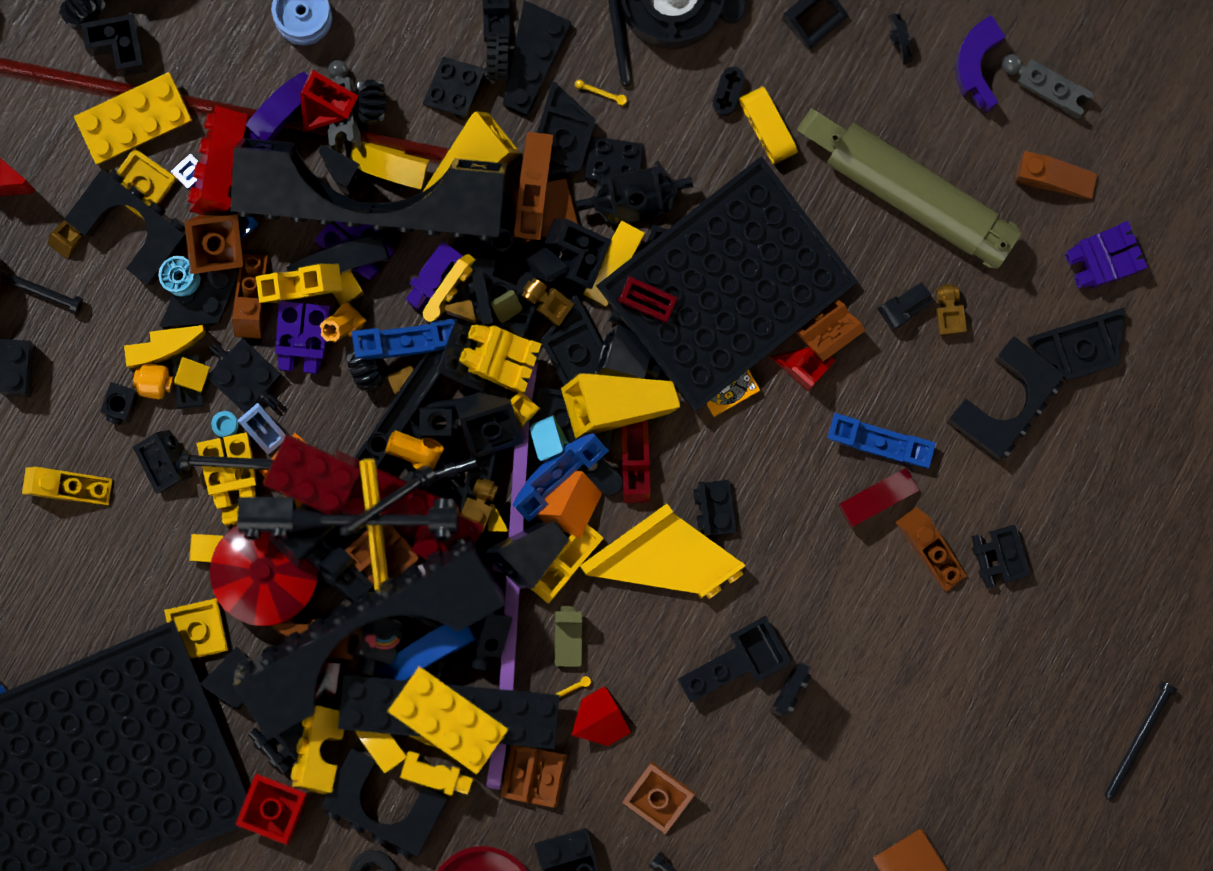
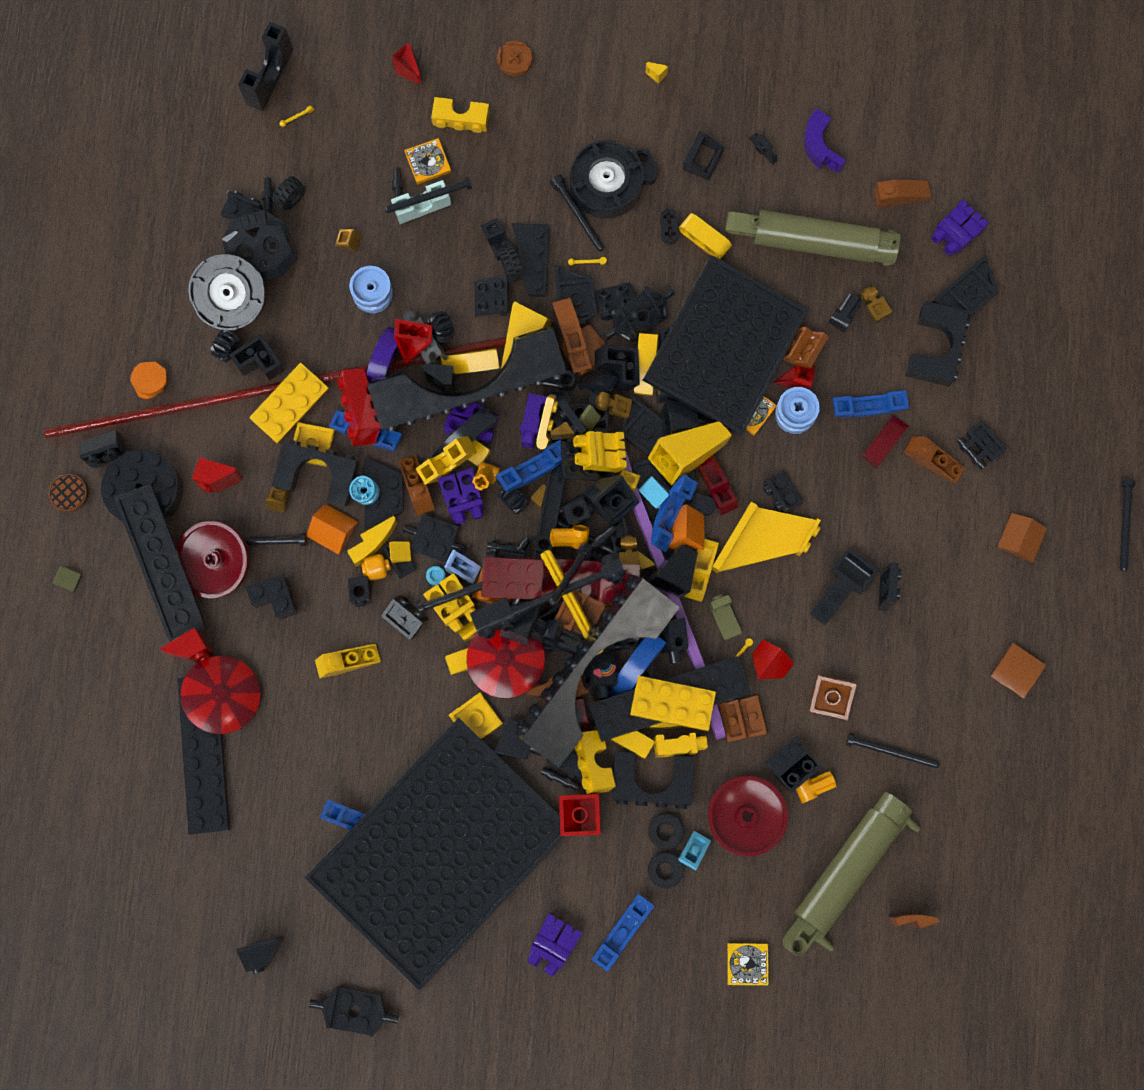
camera: 15 degrees left, 5 degrees down
(118, 305) = (331, 528): none -> orange slope
(213, 242) = (378, 457): dark orange slope -> none
(334, 439) = (512, 551): none -> black piece
(626, 290) = (664, 374): dark red tile -> none
(791, 396) = (801, 400): none -> light blue wheel
(998, 698) = (1022, 537): none -> dark orange slope
(1048, 84) = (871, 138): dark grey plate -> none

